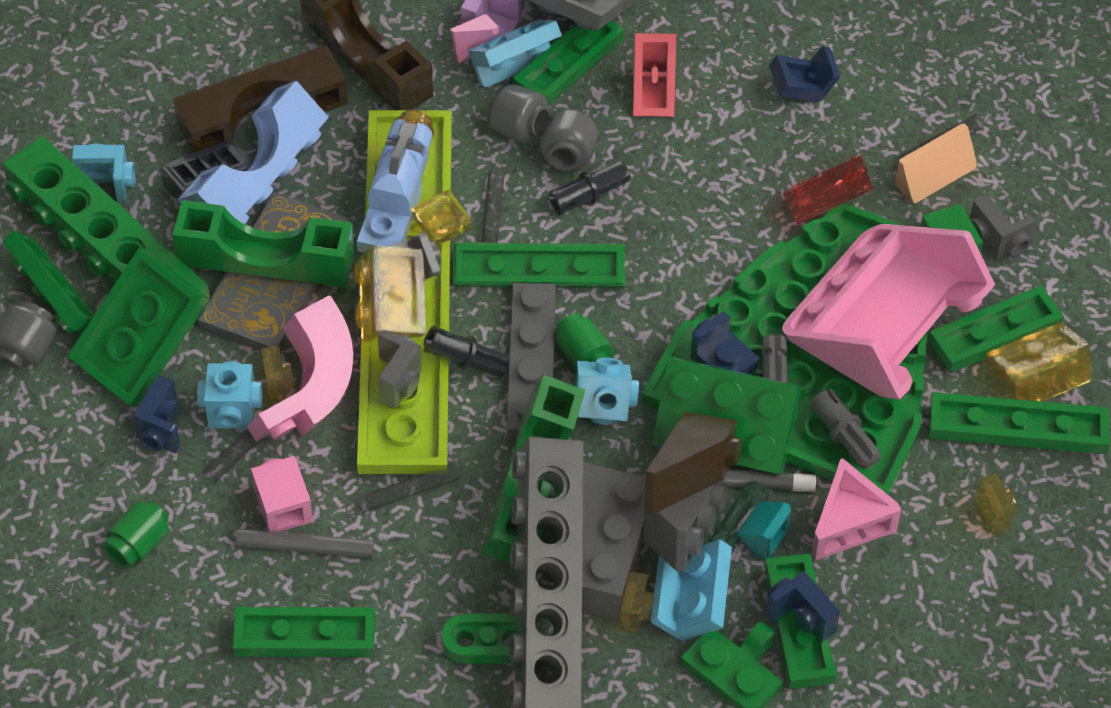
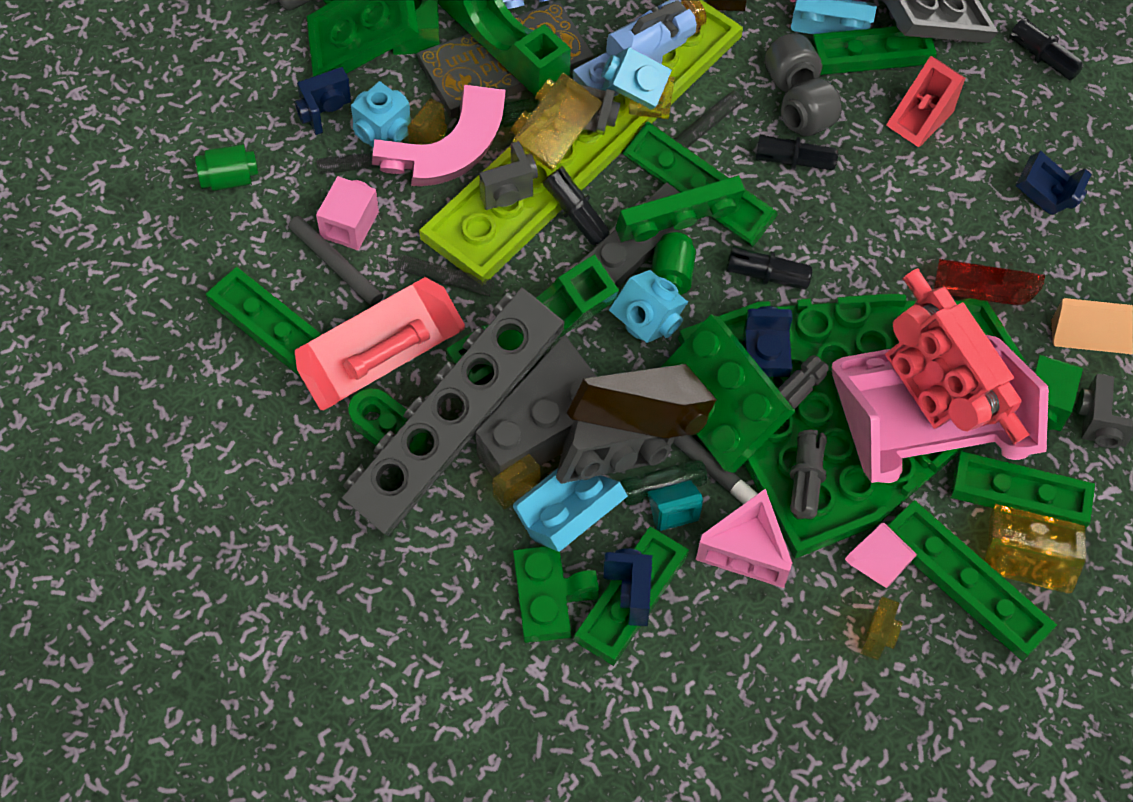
camera: 40 degrees right, 5 degrees up
(415, 576) = (377, 341): none -> coral piece
(425, 211) = (635, 77): none -> medium azure bracket
(558, 296) = (680, 209): none -> green plate
(657, 294) = (769, 268): none -> black axle
(881, 265) = (952, 364): none -> coral piece
(946, 451) = (881, 556): none -> bright pink slope

